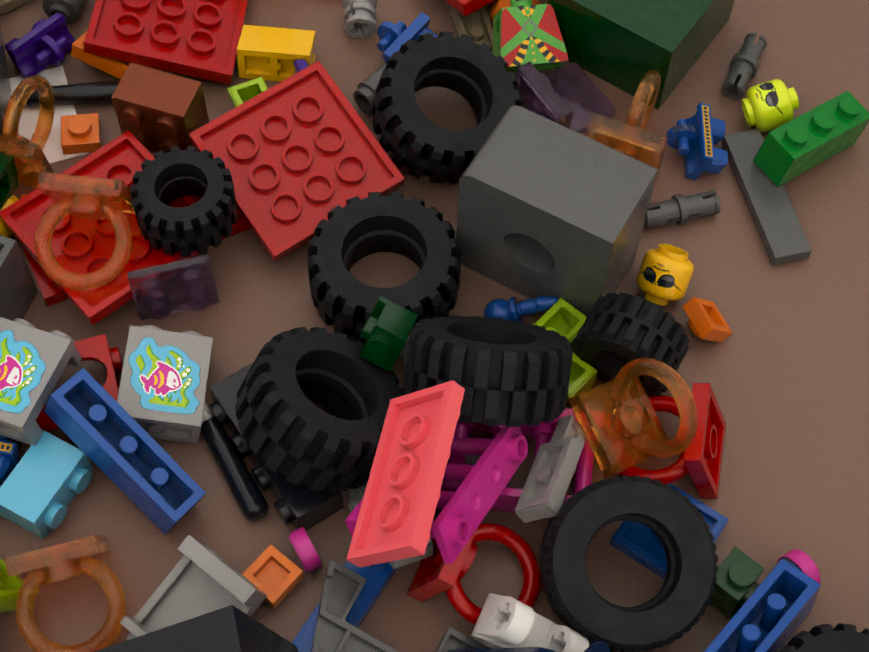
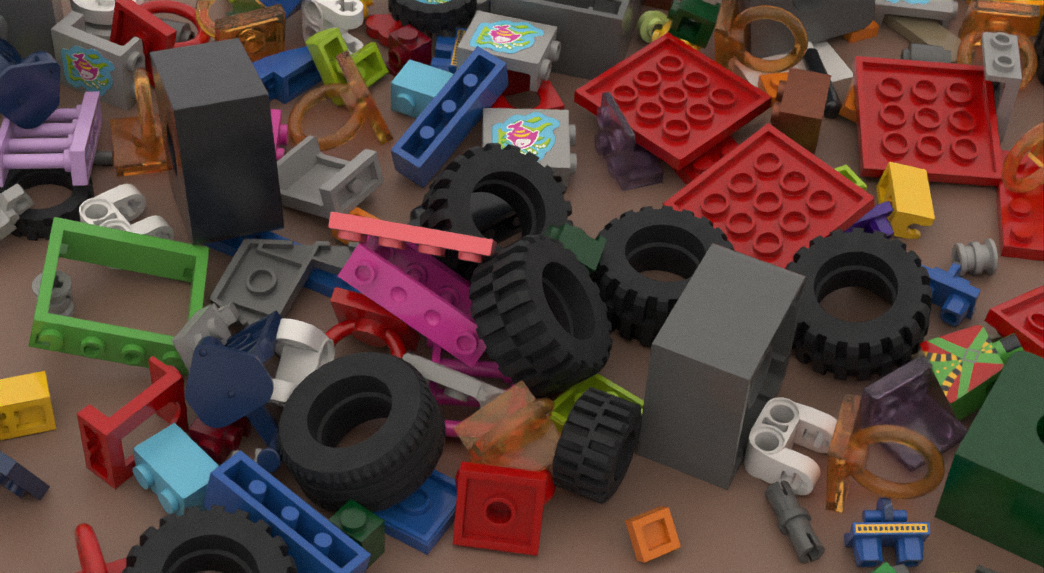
camera: 85 degrees right, 15 degrees down
(41, 46) = (856, 43): dark purple hips -> none
(86, 199) = (674, 61): clear orange tile -> none
(180, 175) = (689, 120): black tyre -> none
(513, 310) = (636, 378): blue bar -> none
(665, 274) = (698, 492): yellow head -> none

